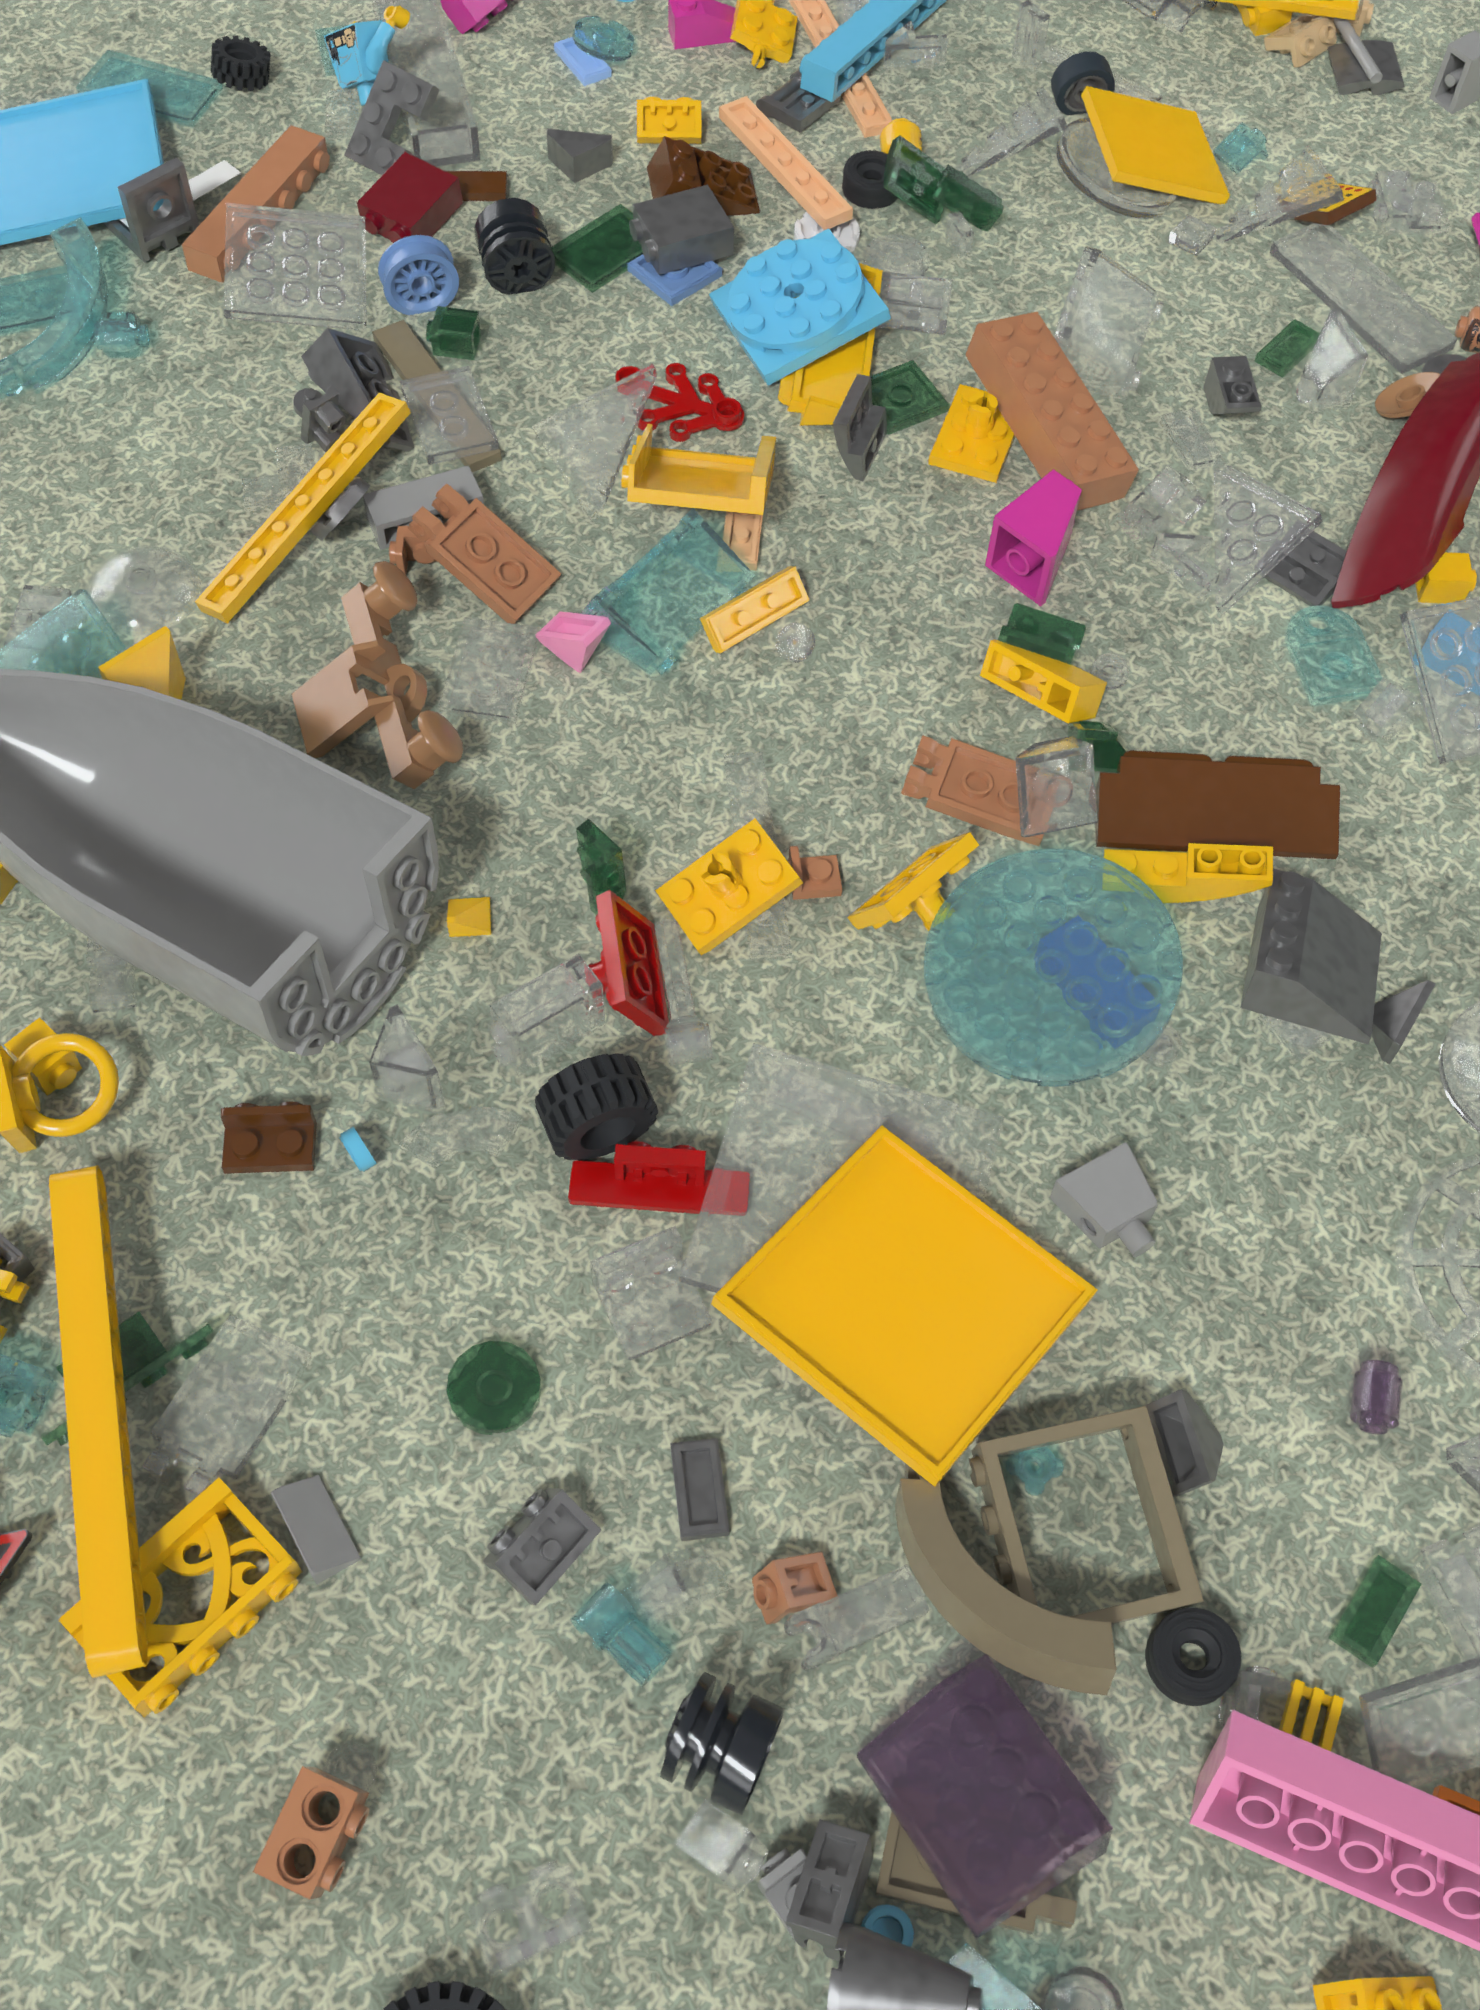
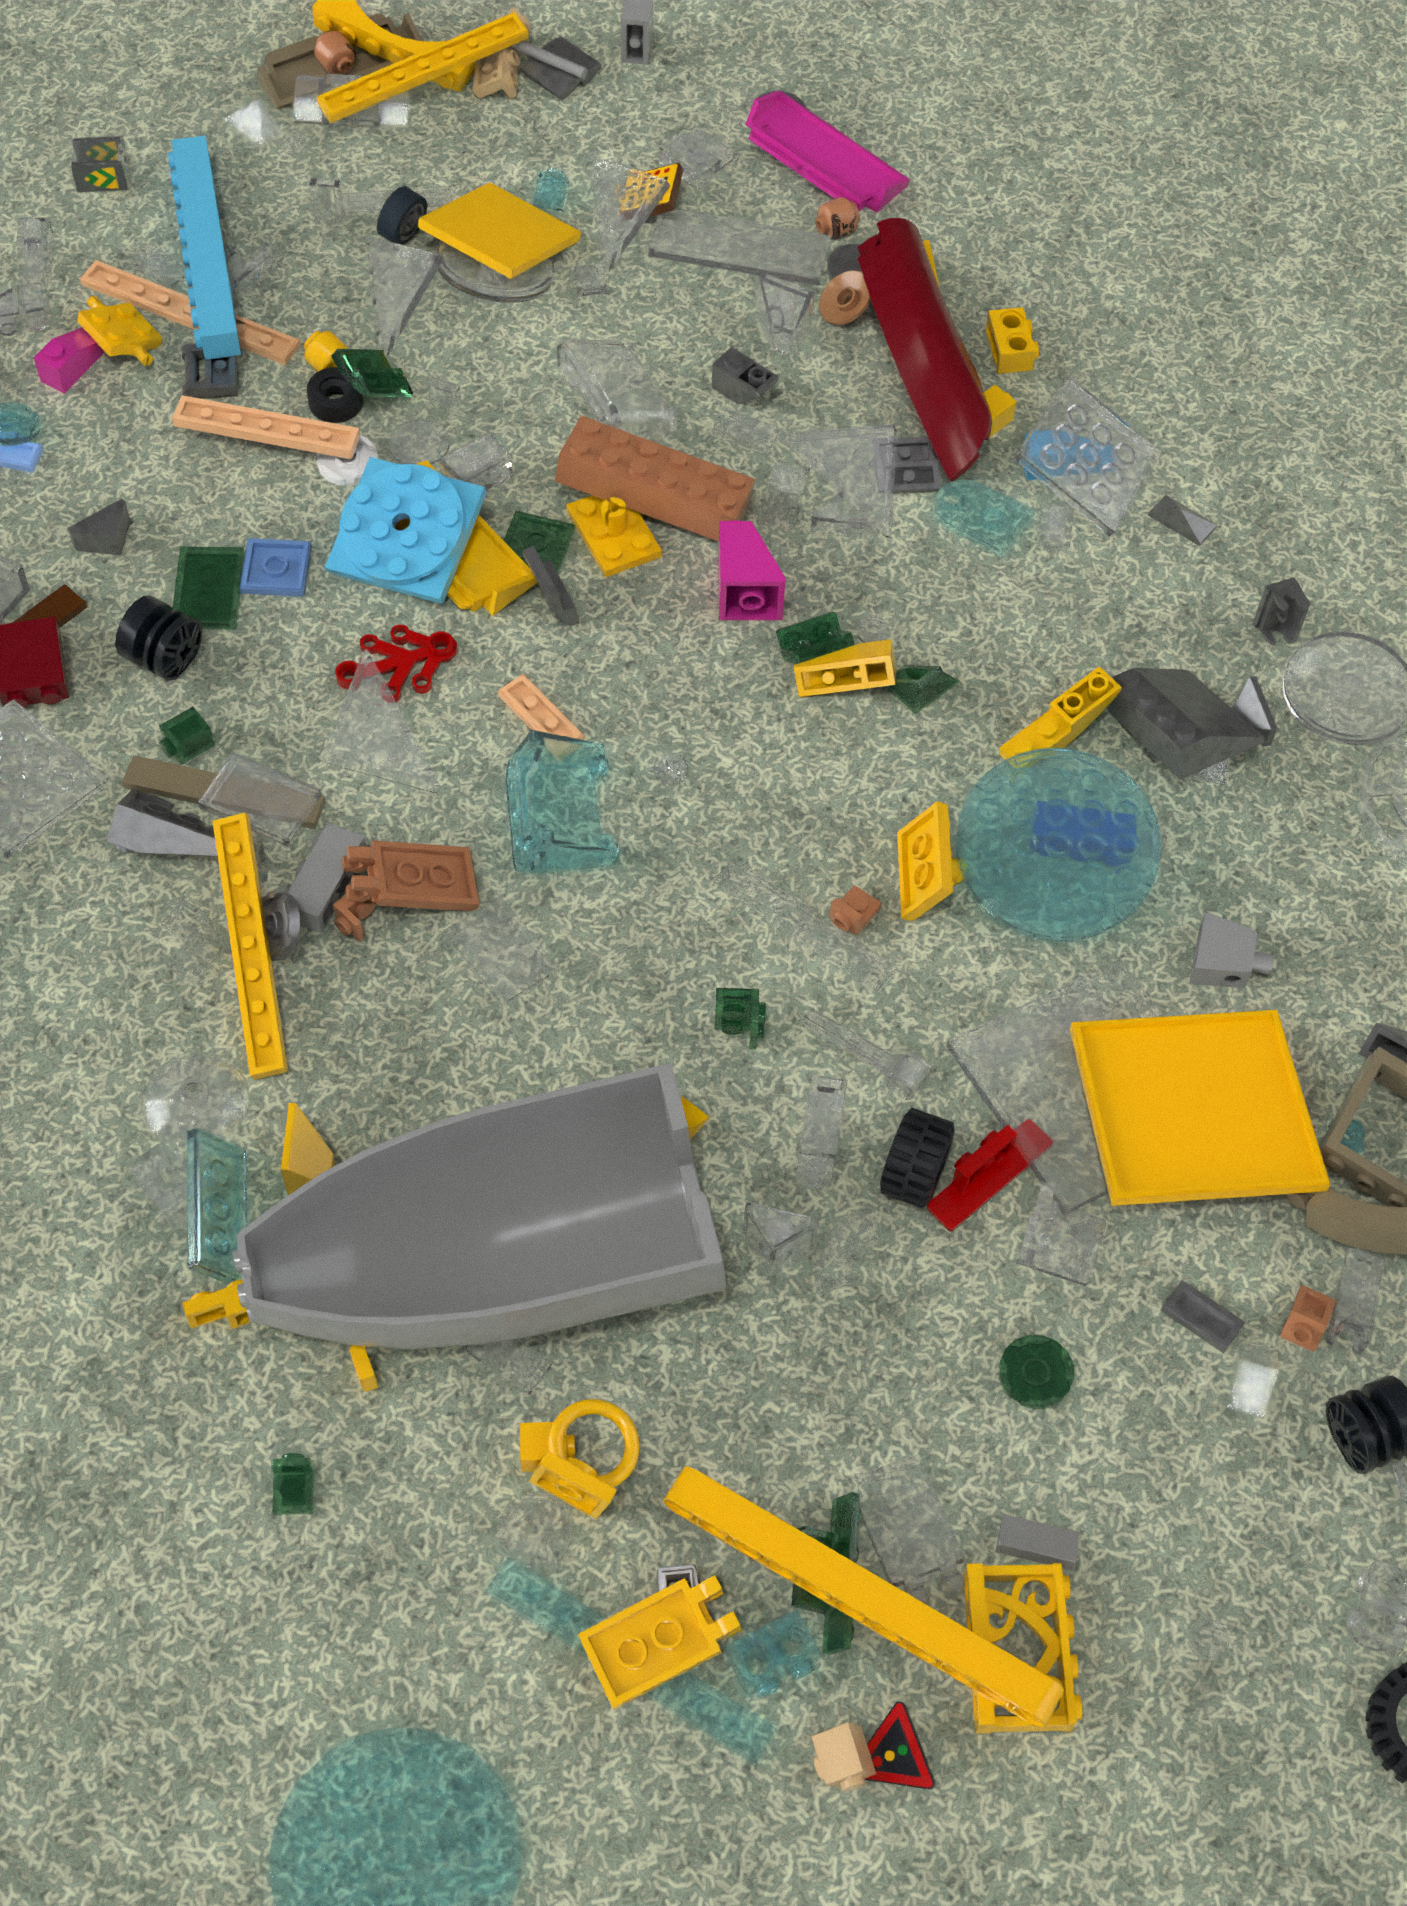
camera: 45 degrees left, 0 degrees up
(268, 1138) = (739, 1362): reddish brown bracket -> none
(301, 1825) = (1226, 1688): nougat brick -> none
(319, 416) = (181, 872): flat silver hips -> none
(334, 708) = (443, 1062): medium nougat piece -> none
(357, 1149) = (800, 1316): medium azure tile -> none
(418, 274) = (117, 713): medium blue wheel -> none
(541, 1543) = (1162, 1425): flat silver bracket -> none
(573, 637) = (536, 881): bright pink slope -> none
(618, 1631) = (1249, 1428): clear light blue piece -> none
(630, 964) = (825, 1059): red plate -> none
(669, 118) = (139, 455): yellow bracket -> none
(682, 229) = (259, 533): flat silver brick -> none
(683, 167) = (219, 489): reddish brown slope -> none
(699, 478) = (499, 701): yellow panel -> none
(728, 887) = (822, 959): yellow plate -> none
(754, 609) = (622, 767): yellow tile -> none
(968, 786) = (887, 768): nougat tile -> none
(969, 198) = (420, 361): clear green bracket -> none
(1056, 786) = (936, 727): clear slope -> none
(1189, 798) = (1026, 669): reddish brown slope -> none
(1287, 348) = (734, 318): clear green tile -> none

